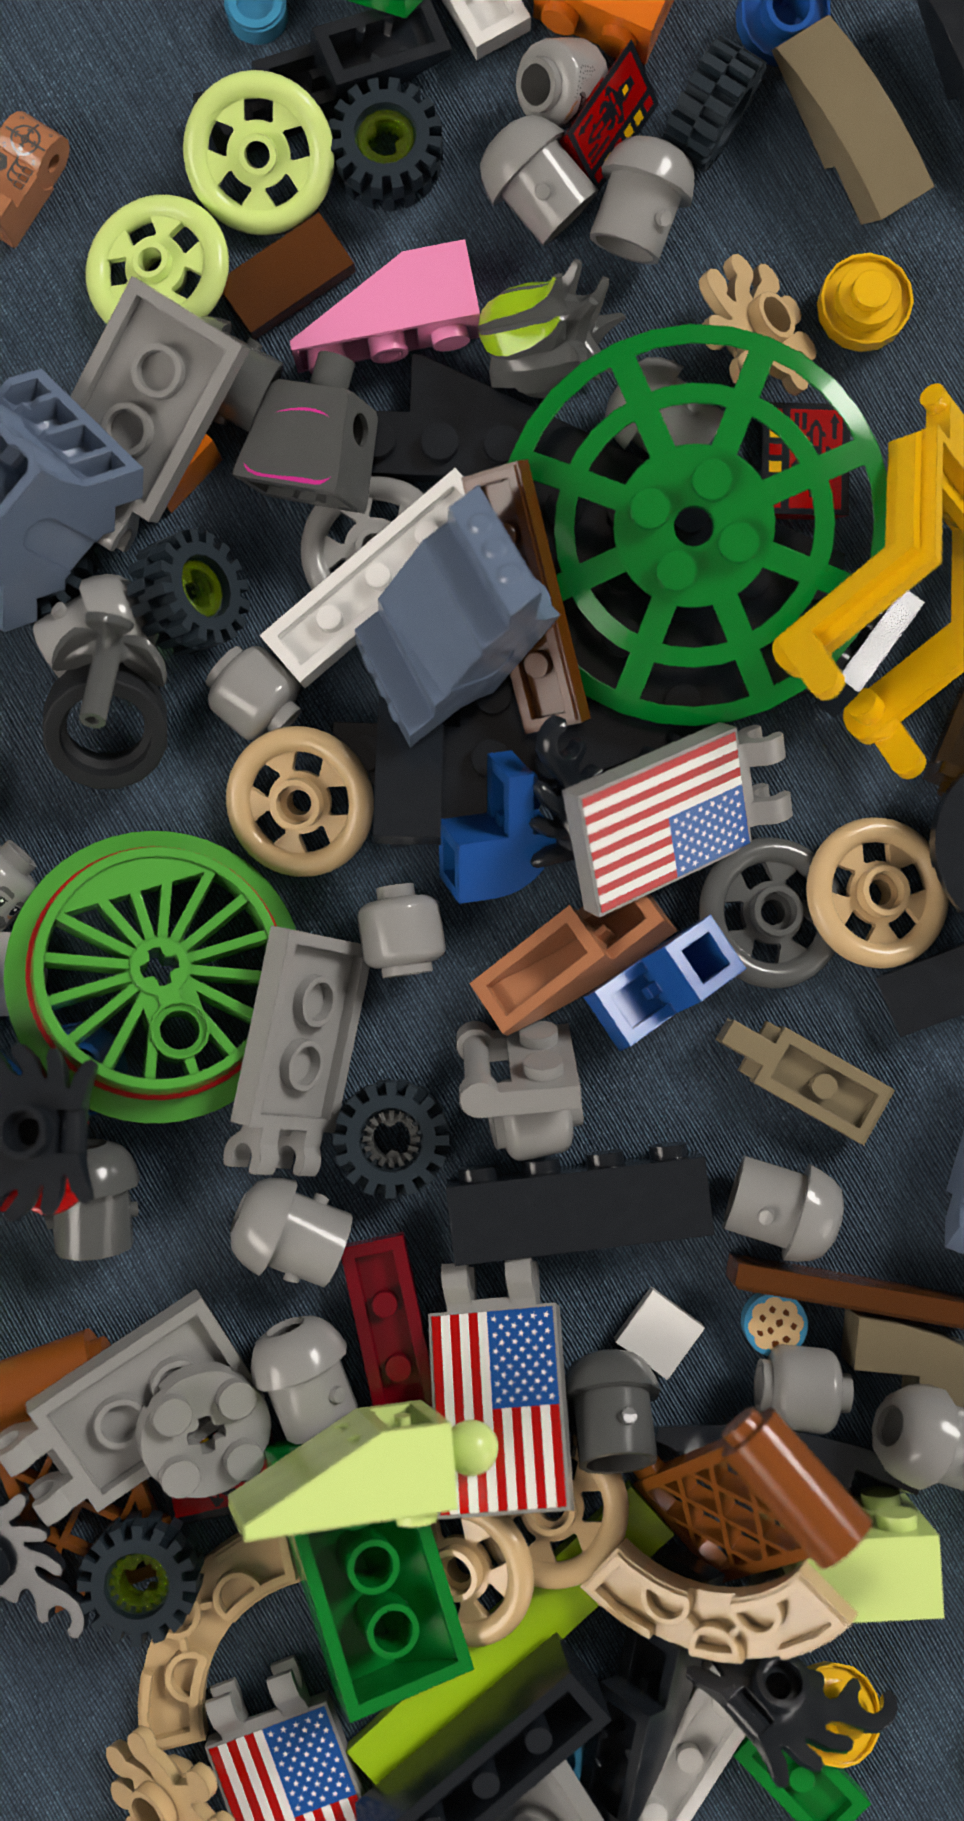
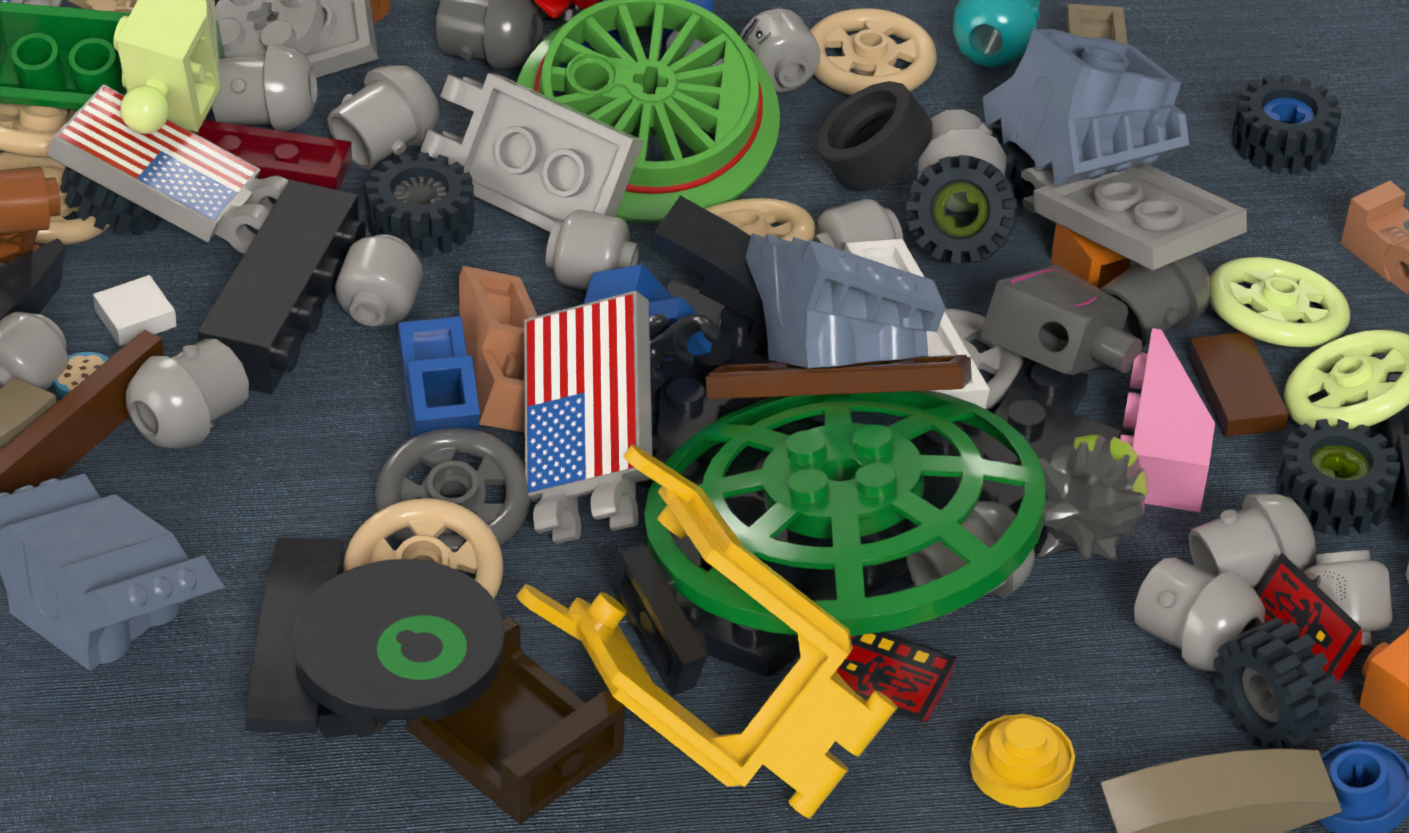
camera: 115 degrees right, 45 degrees down
(105, 649) = (929, 121): dark grey plant -> none
(539, 1065) = (409, 256): light grey plate -> none
(613, 1411) = (102, 235): dark grey piece -> none
(757, 312) = (1029, 648): tan animal -> none
(809, 1077) = (286, 464): dark tan hinge -> none

